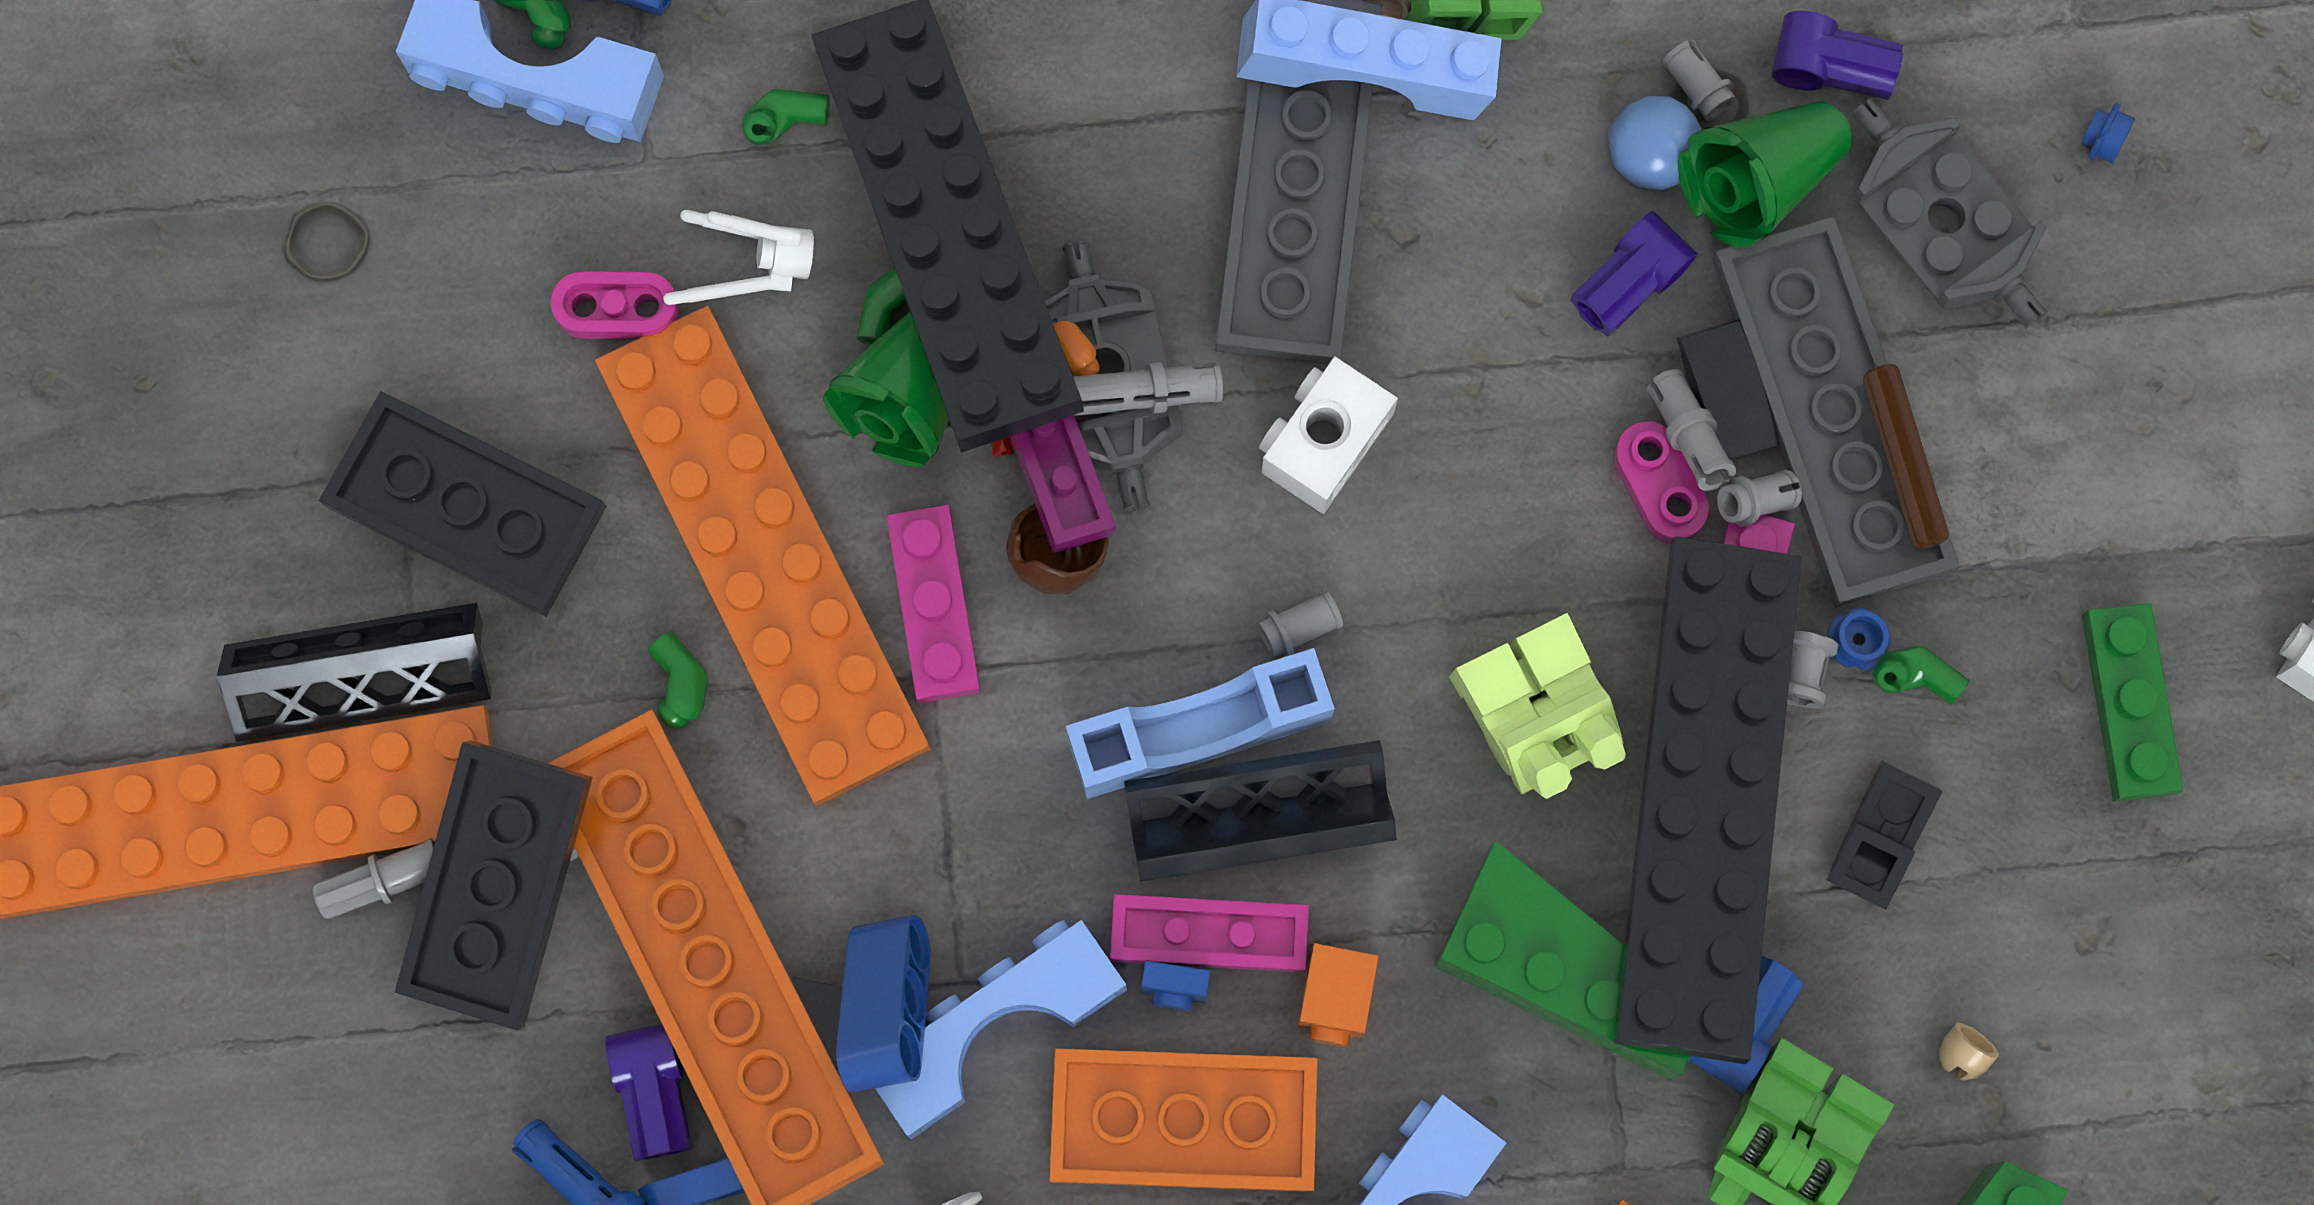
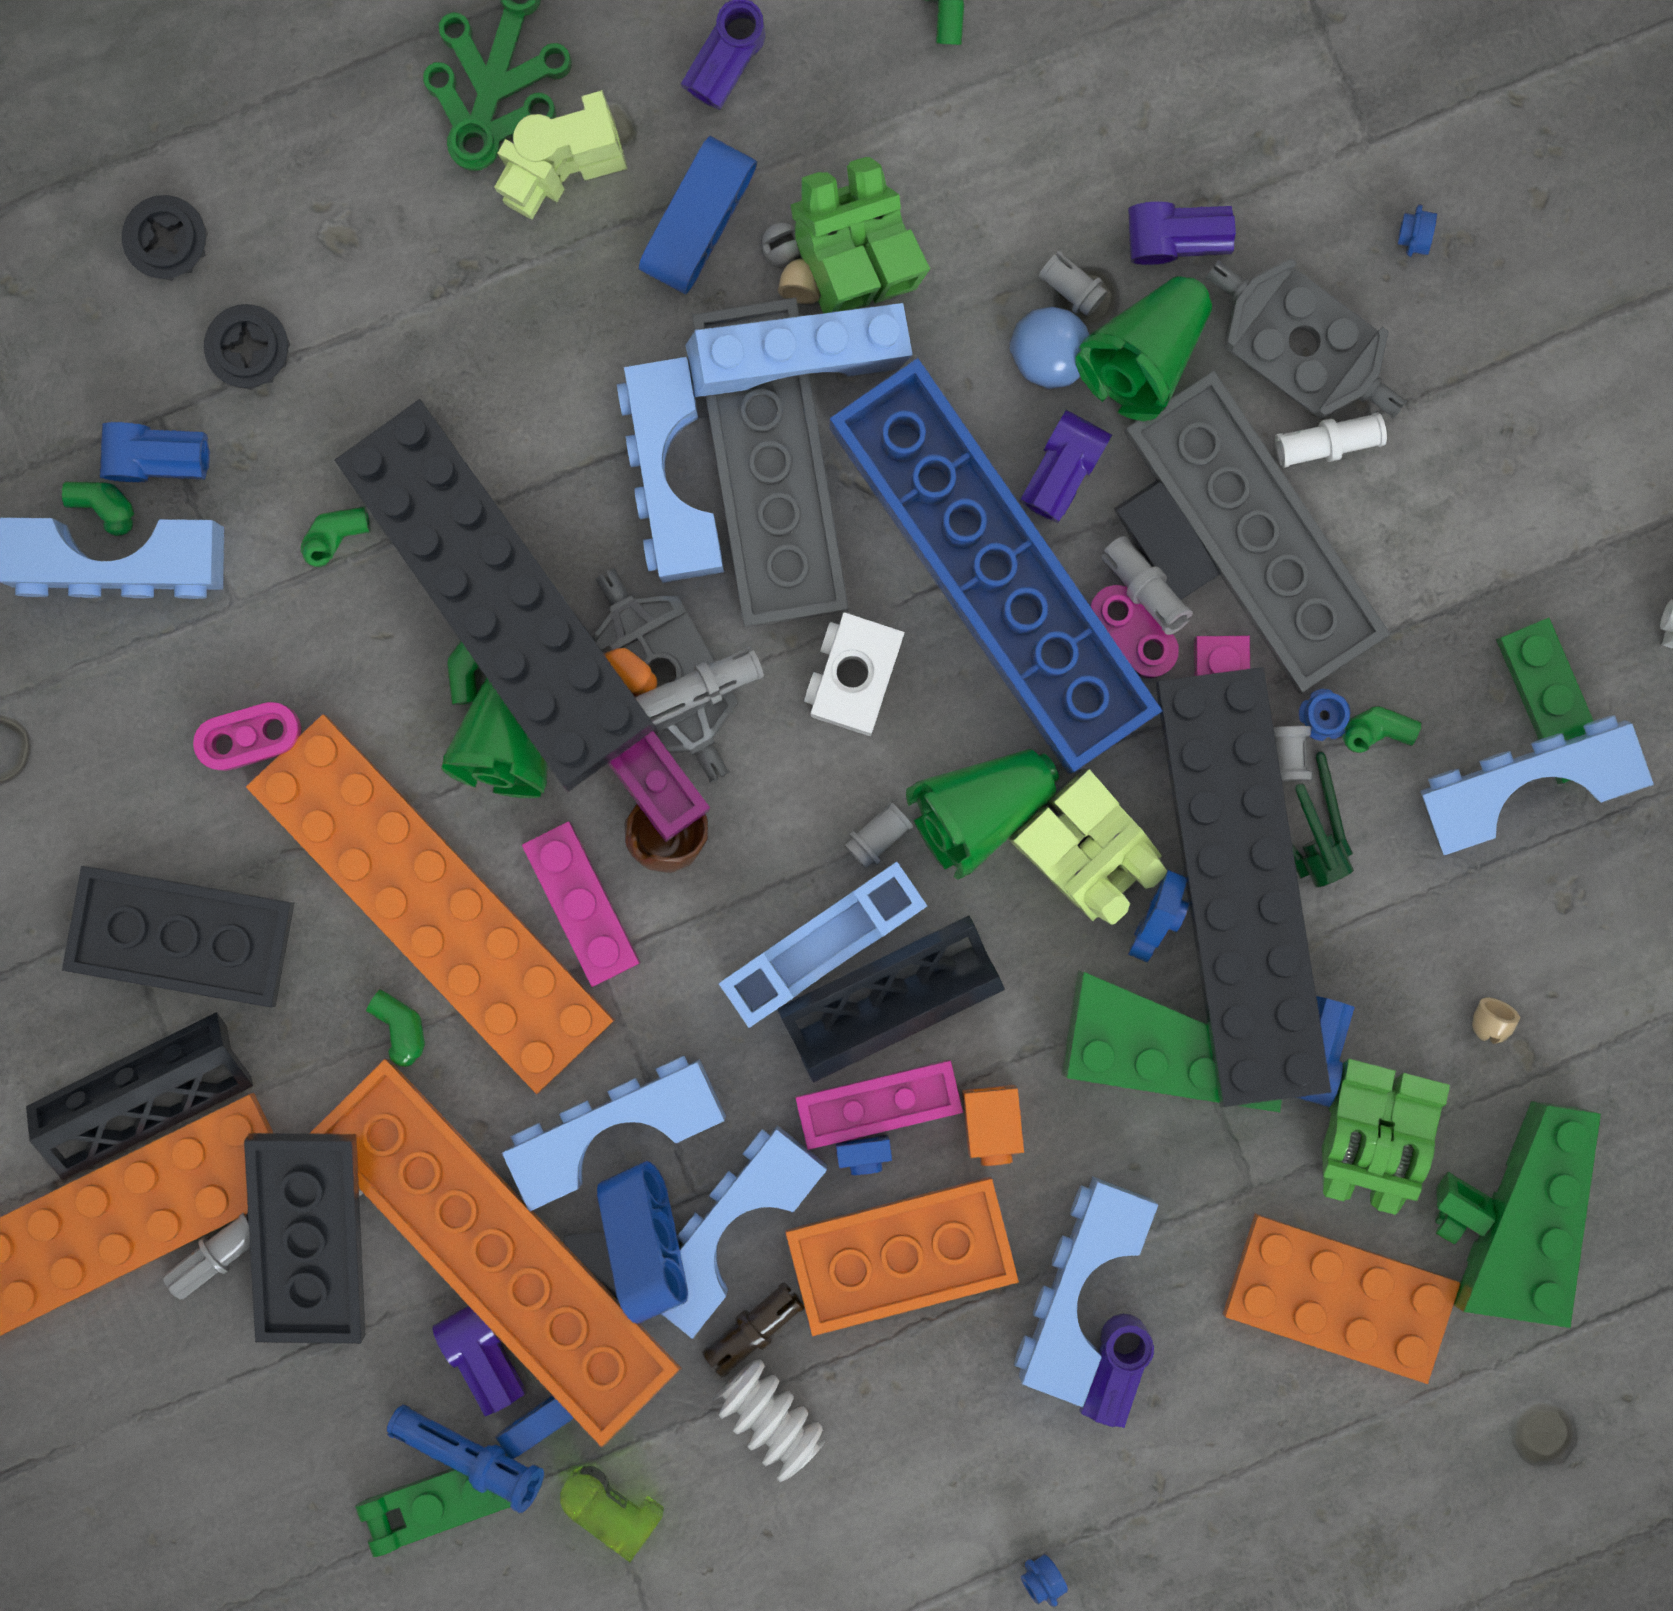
camera: 20 degrees left, 10 degrees up
(780, 249) = (366, 650): white plant -> none
(807, 882) = (552, 1160): none -> light blue arch
(981, 1155) = (753, 1329): none -> dark brown pin
(1195, 81) = (661, 405): none -> light blue arch
(1427, 621) = (980, 806): none -> green cone
(1522, 360) = (993, 566): none -> blue brick
(1609, 802) = (1163, 913): none -> blue plate
(1746, 499) = (1206, 631): light grey pin -> none
(1820, 798) = (1327, 854): none -> dark green plant
(1883, 835) = (1385, 866): black slope -> none
(1905, 456) = (1324, 558): reddish brown axle -> none
(1947, 332) = (1330, 439): none -> white pin
(2170, 776) = (1602, 760): none -> light blue arch

